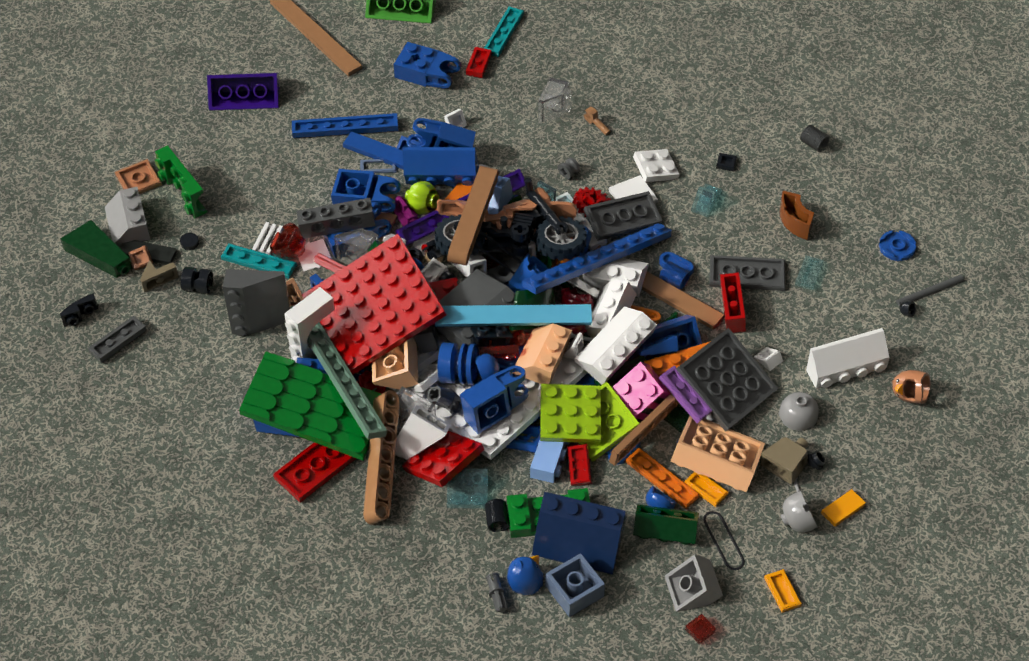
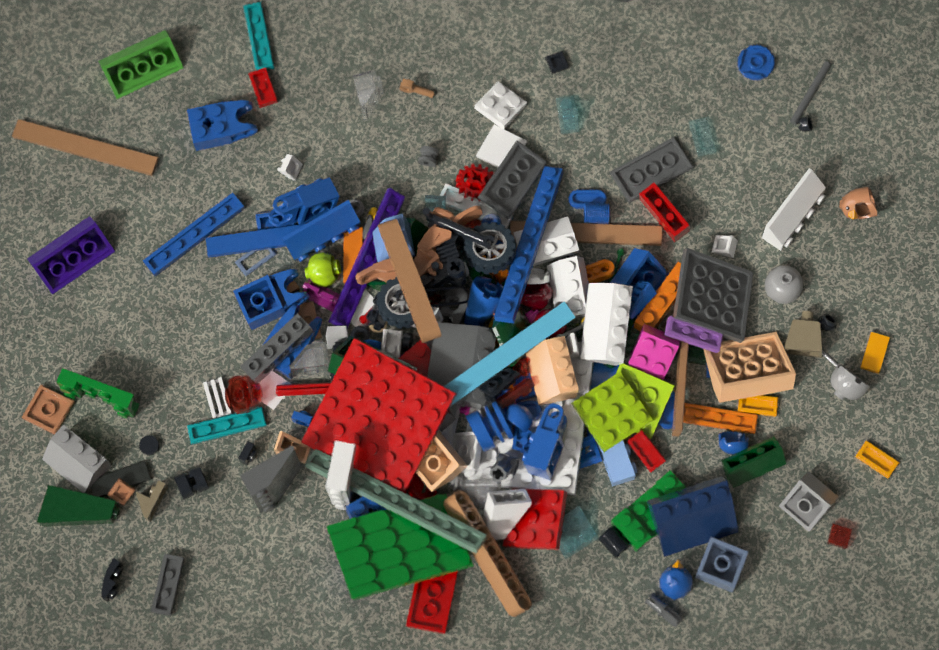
camera: 30 degrees left, 20 degrees up
(716, 544) = (821, 464): black piece -> none
(795, 215) = (656, 88): dark orange brick -> none

